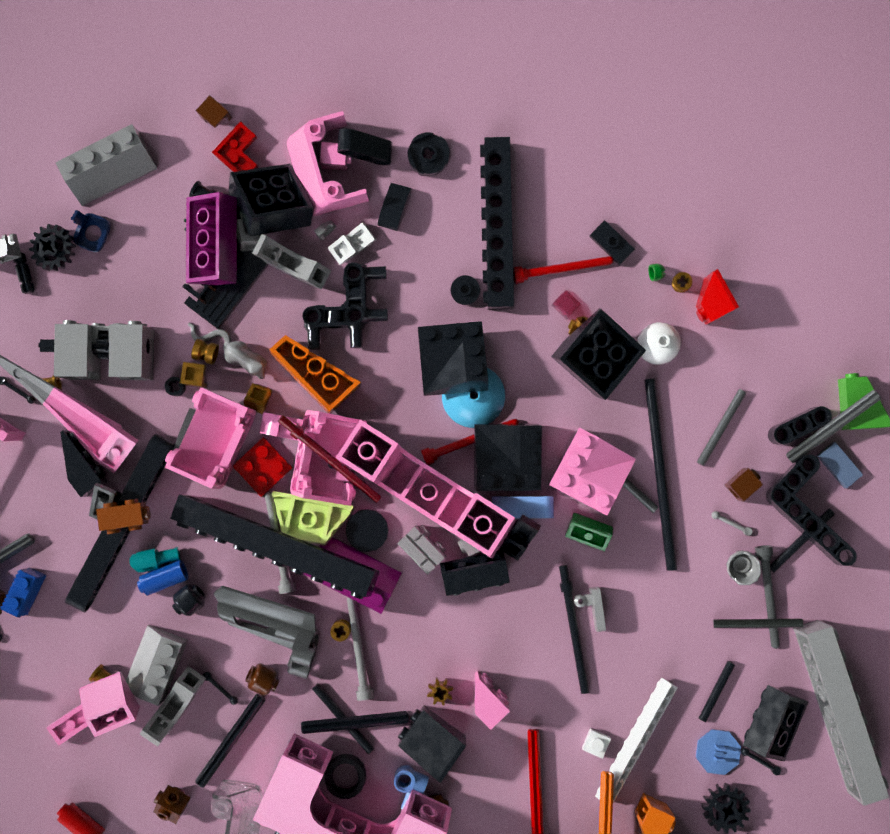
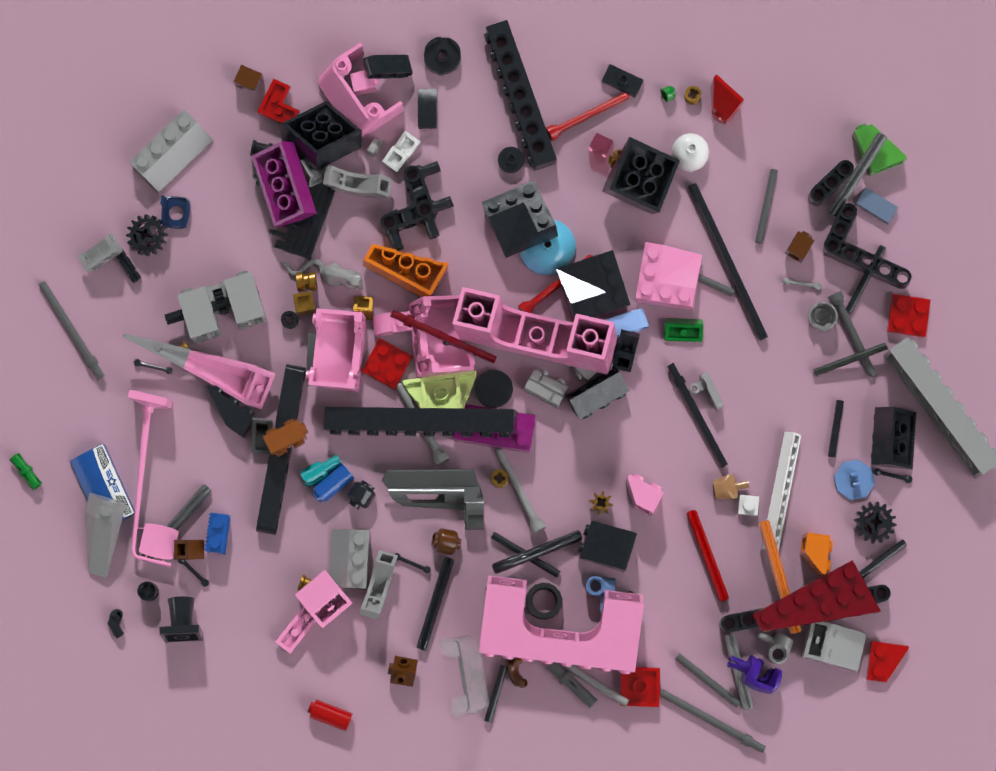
camera: 20 degrees left, 5 degrees down
(580, 717) = (727, 487): none -> medium nougat piece
(835, 595) = (908, 315): none -> red plate

